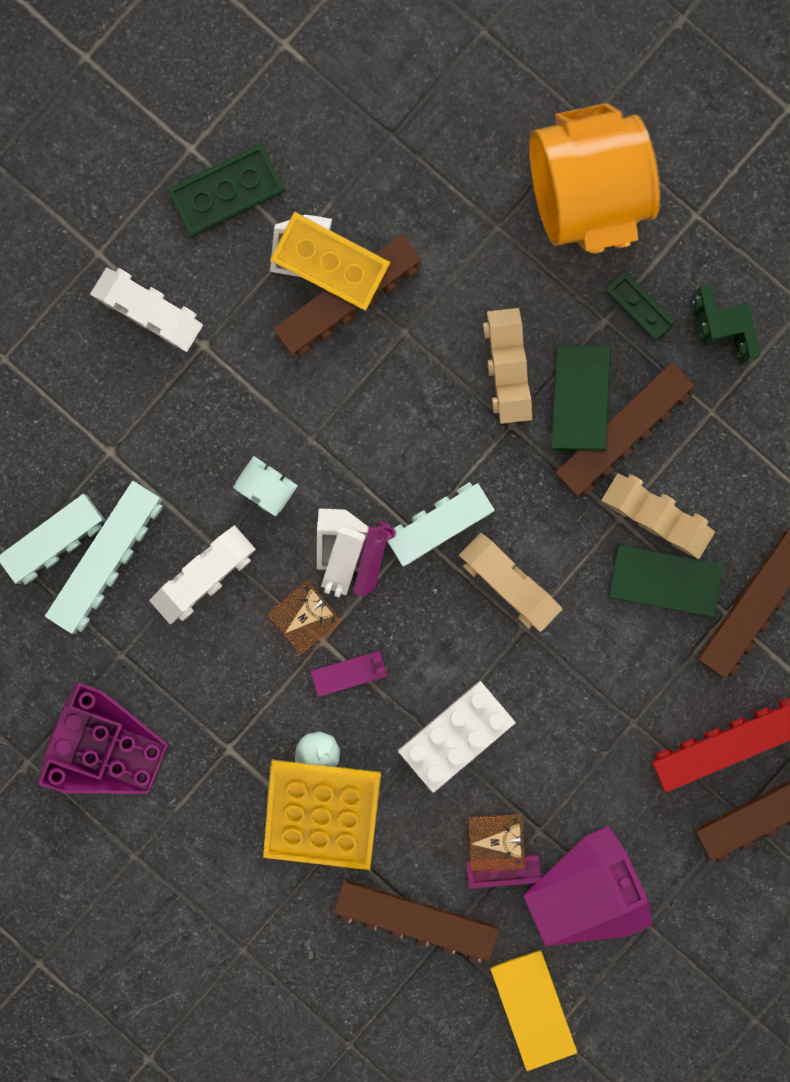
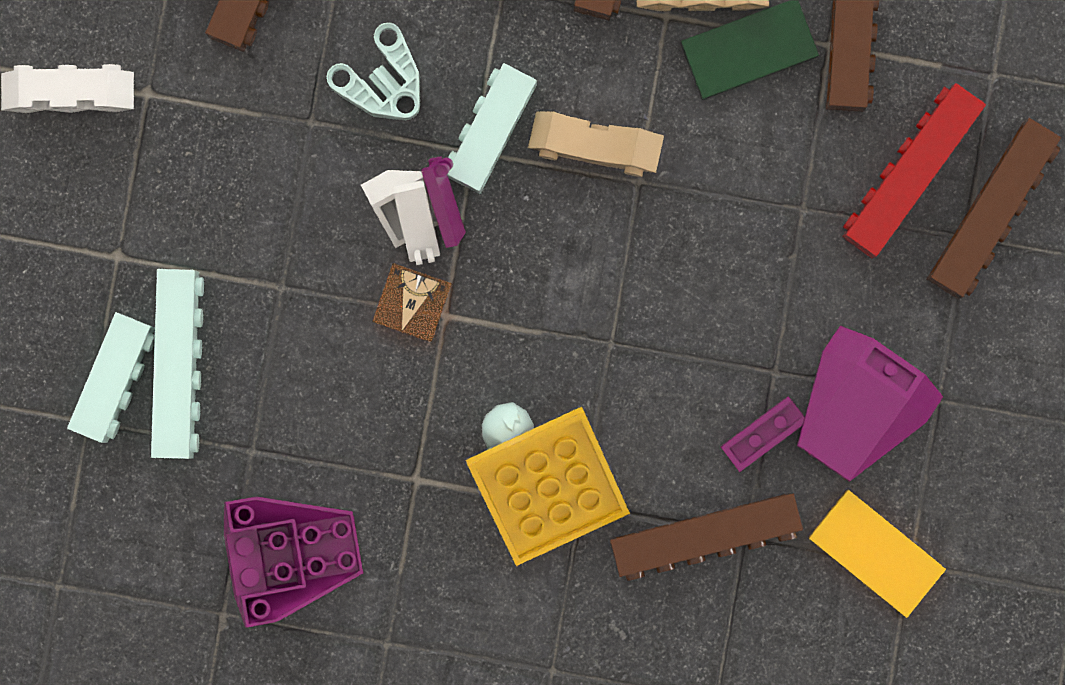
camera: 30 degrees left, 0 degrees up
(203, 575) = (285, 321): white brick -> none
(264, 486) = (293, 194): light aqua brick -> none
(348, 673) = (490, 331): magenta hinge -> none
(404, 437) = (363, 96): none -> light aqua connector
(456, 736) = (635, 327): white brick -> none
(497, 843) = (740, 409): clear orange tile -> none

